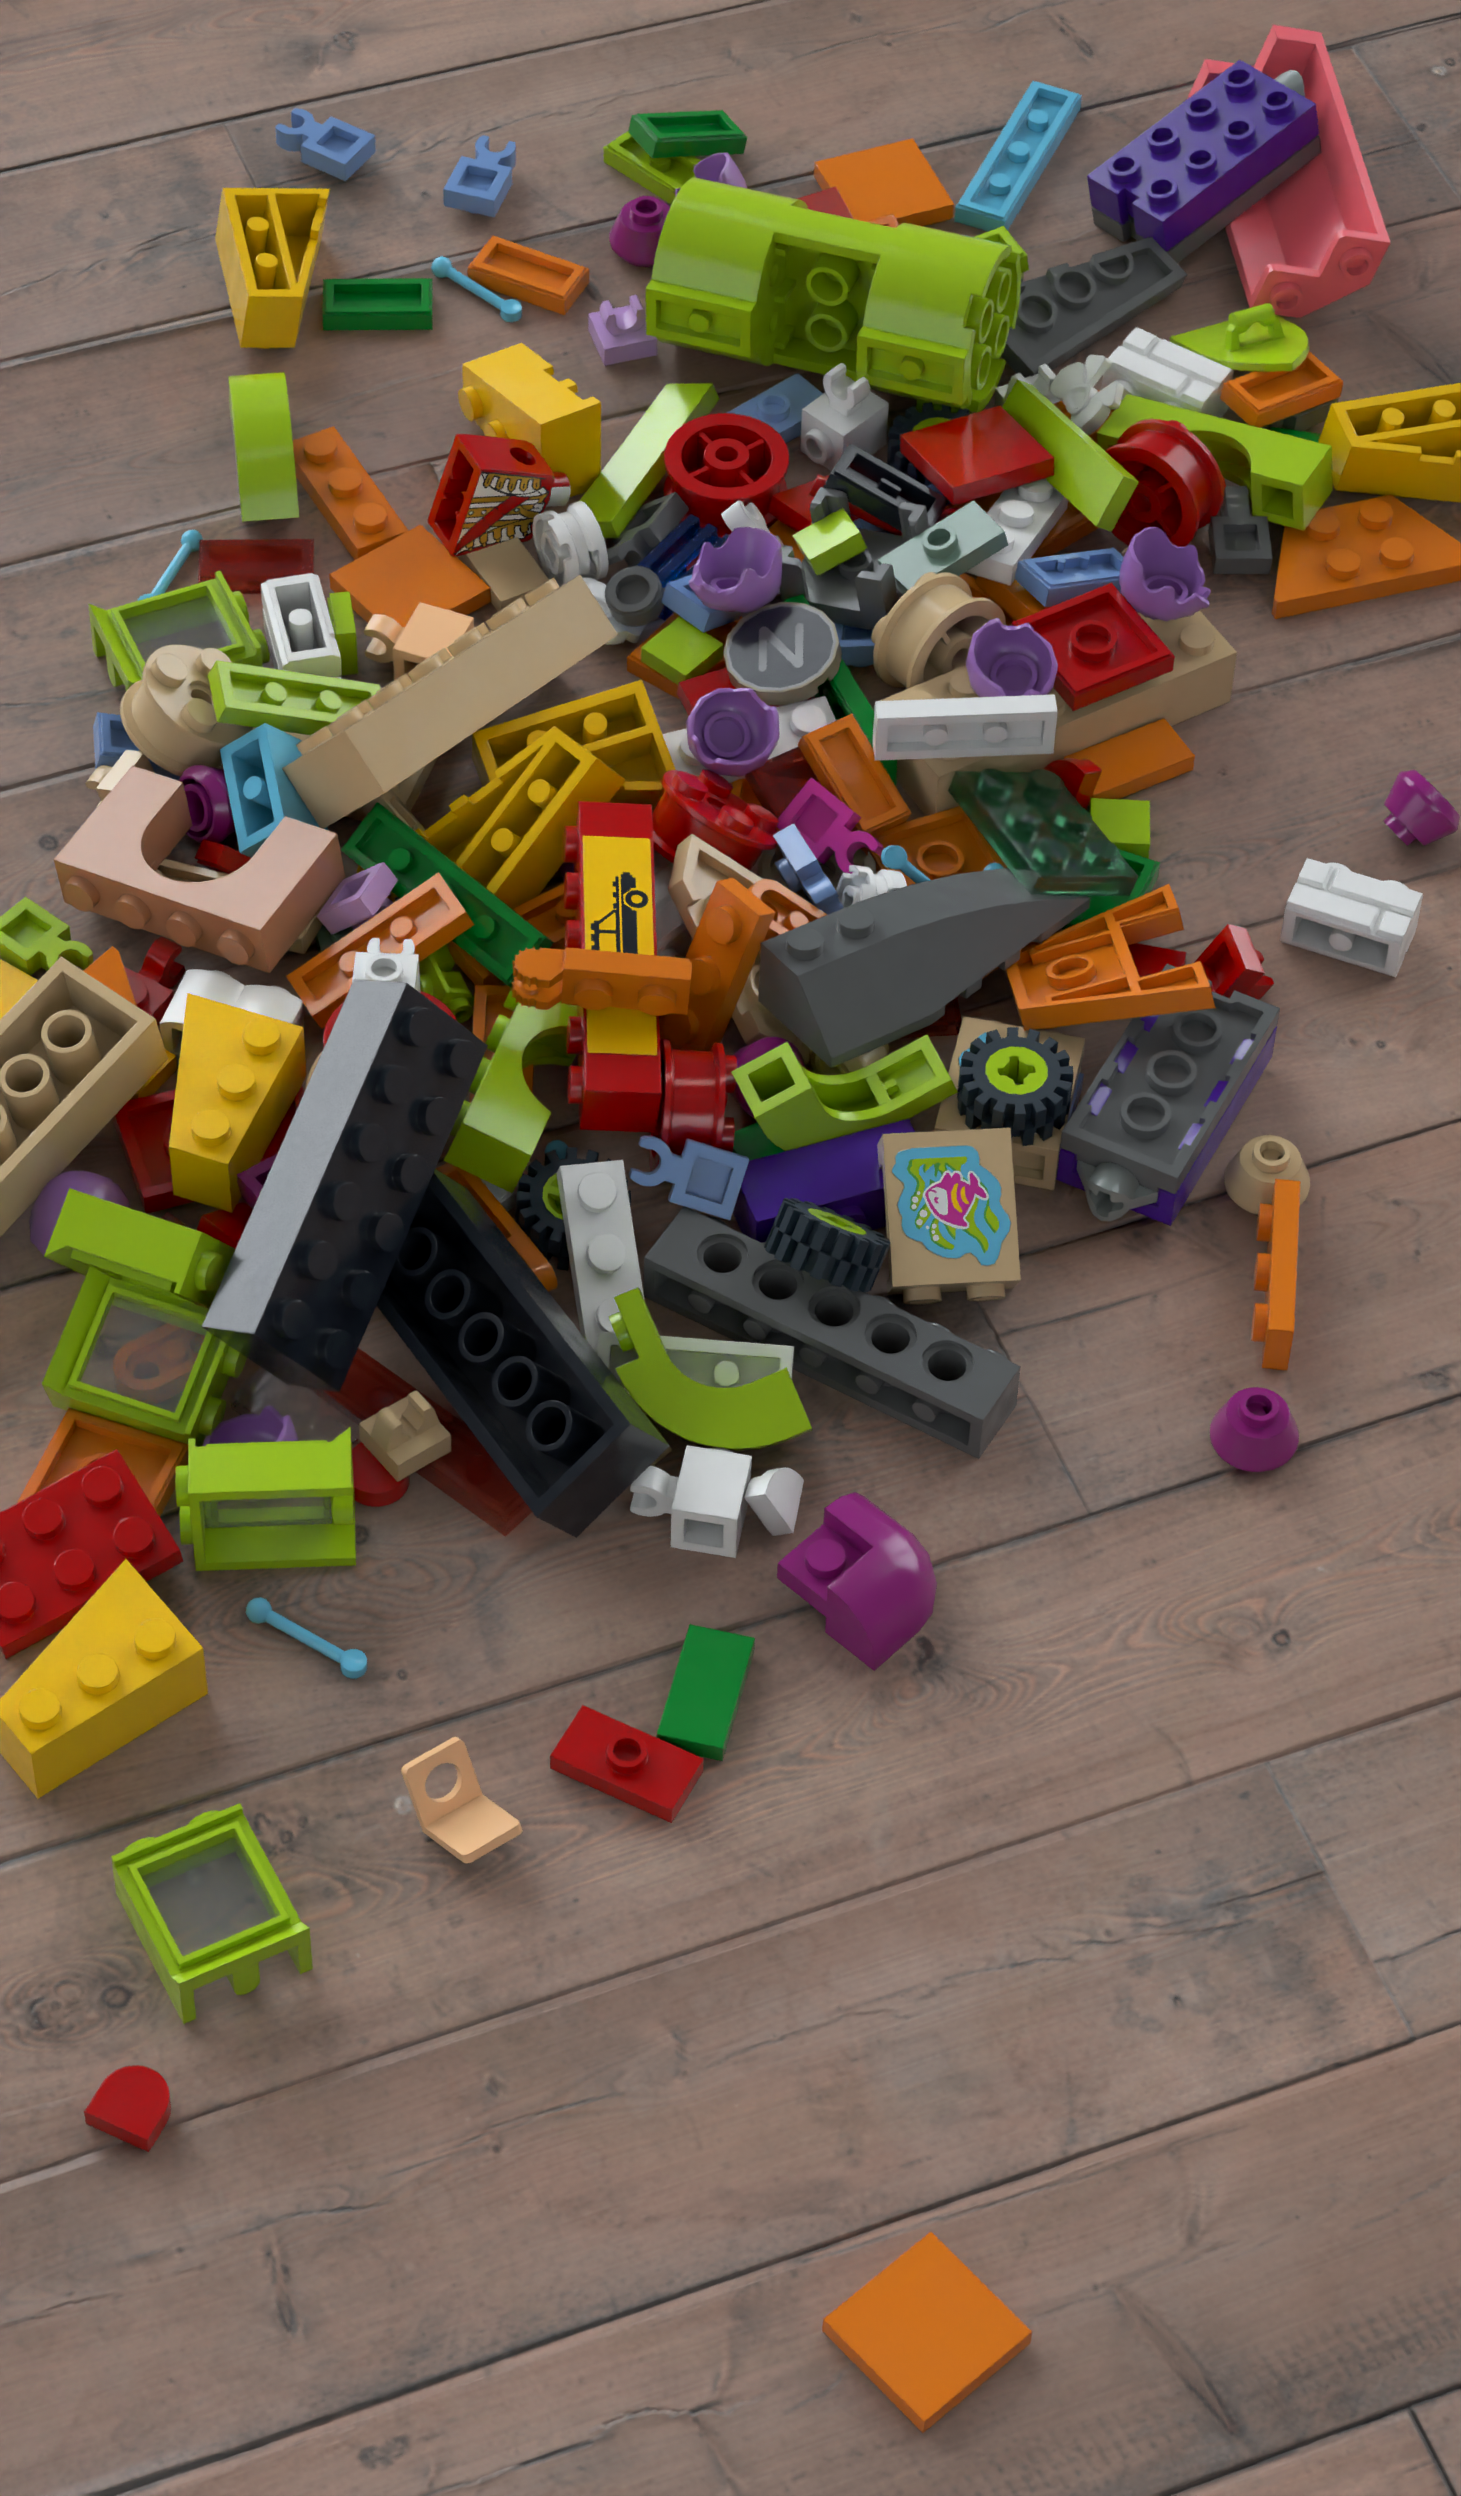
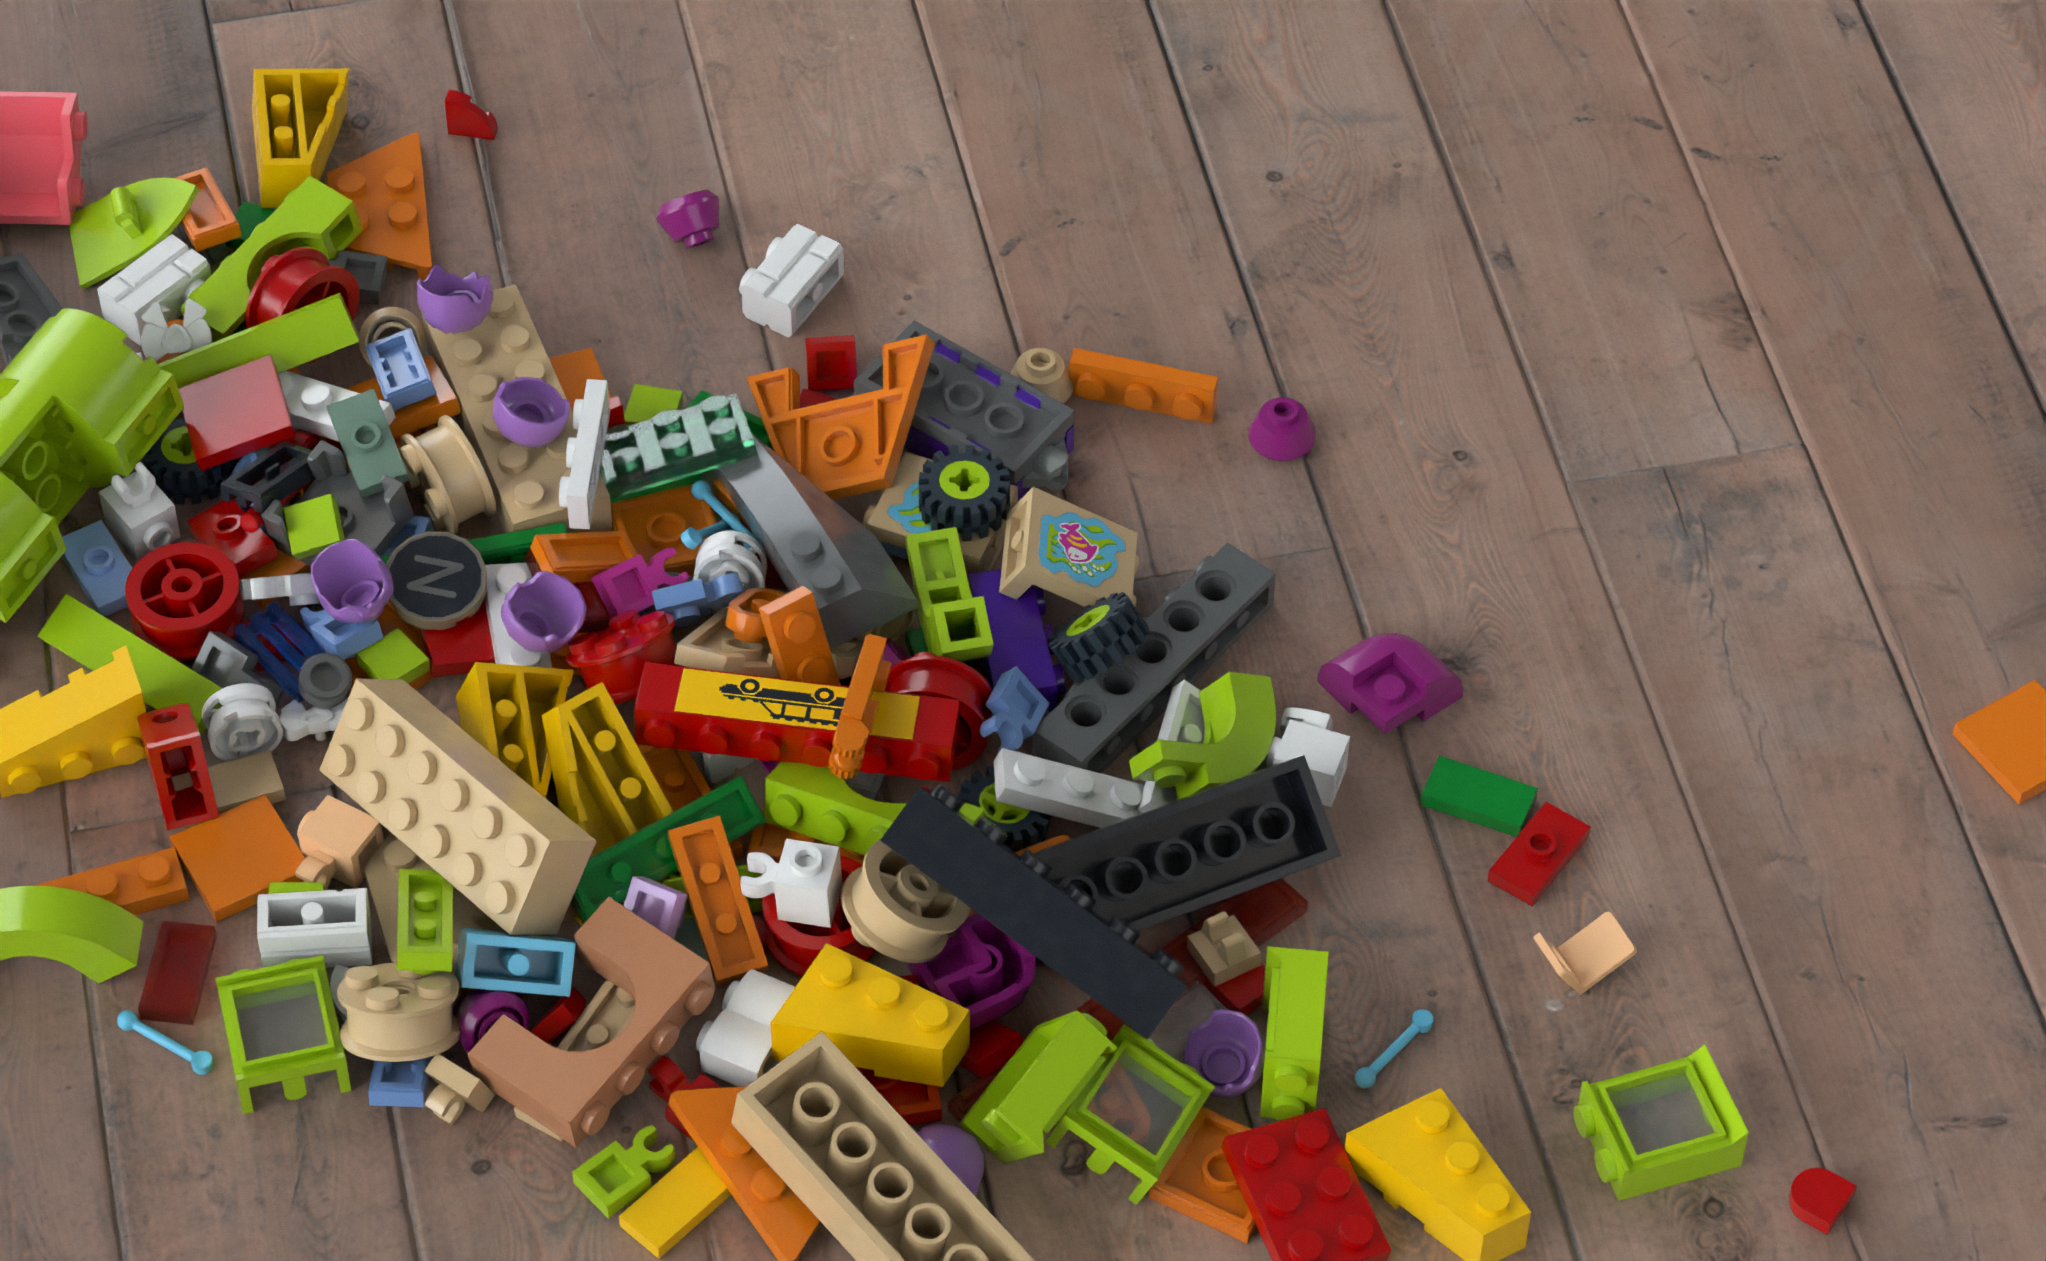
camera: 80 degrees left, 0 degrees up
(1099, 646) = (498, 353): red tile -> none

